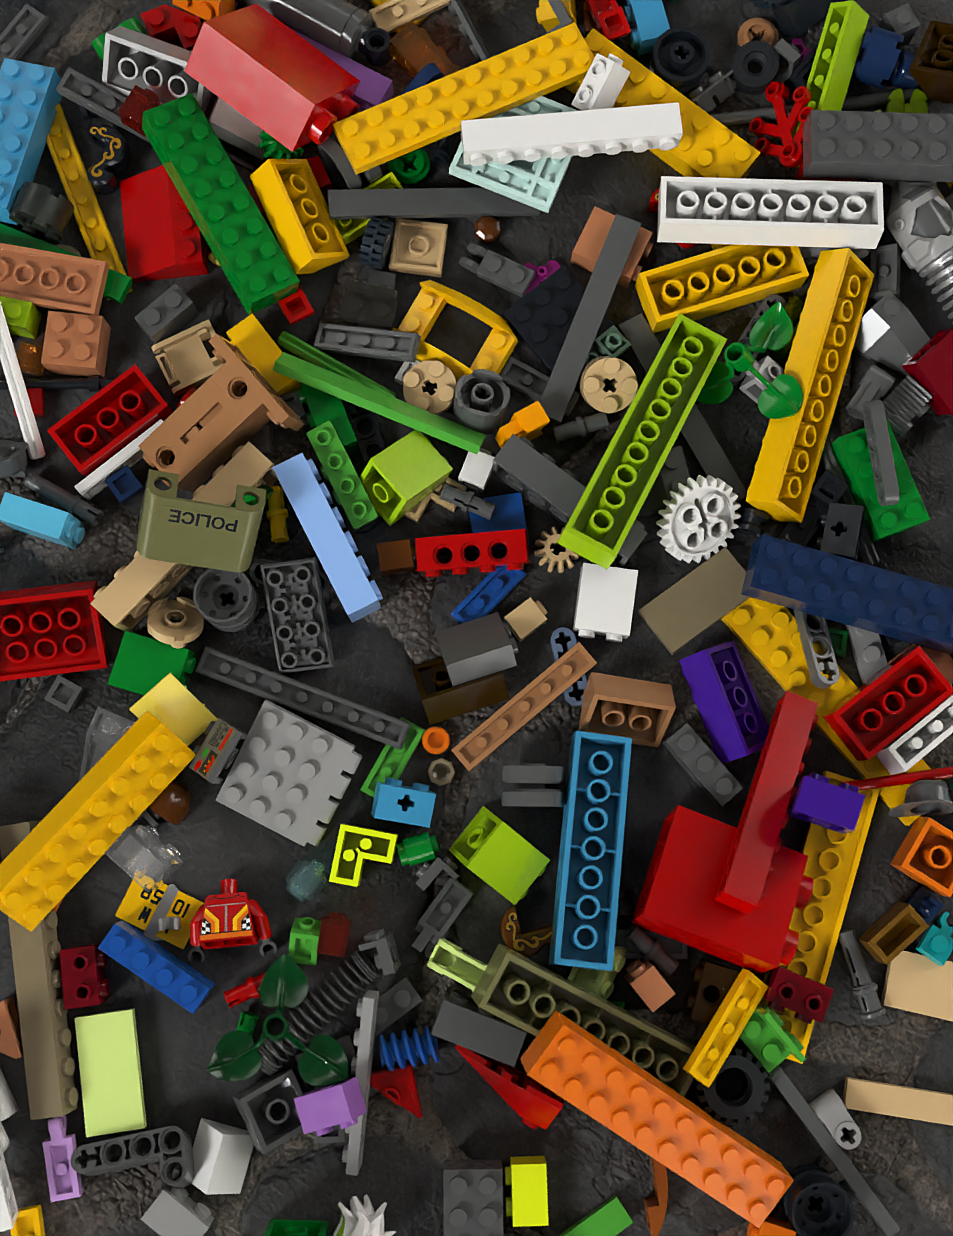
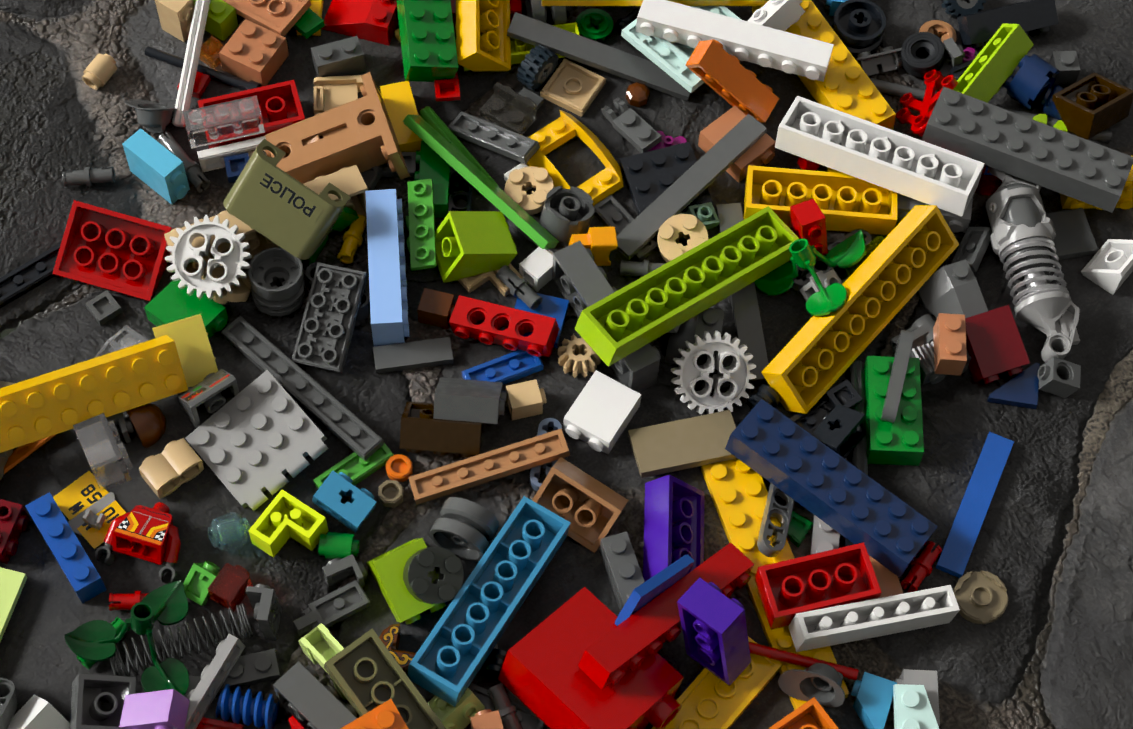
camera: 25 degrees right, 20 degrees down
(87, 448) = (223, 121): none -> clear brick
(122, 617) = (231, 261): none -> white gear
(218, 838) = (171, 468): none -> tan brick
(394, 615) = (413, 355): none -> dark grey tile
(531, 856) = (446, 565): none -> pearl dark grey brick
(585, 182) = (732, 80): none -> orange brick
(729, 319) = (810, 224): none -> red brick
(749, 787) = (654, 587): none -> blue tile
(914, 394) = (949, 344): none -> nougat brick

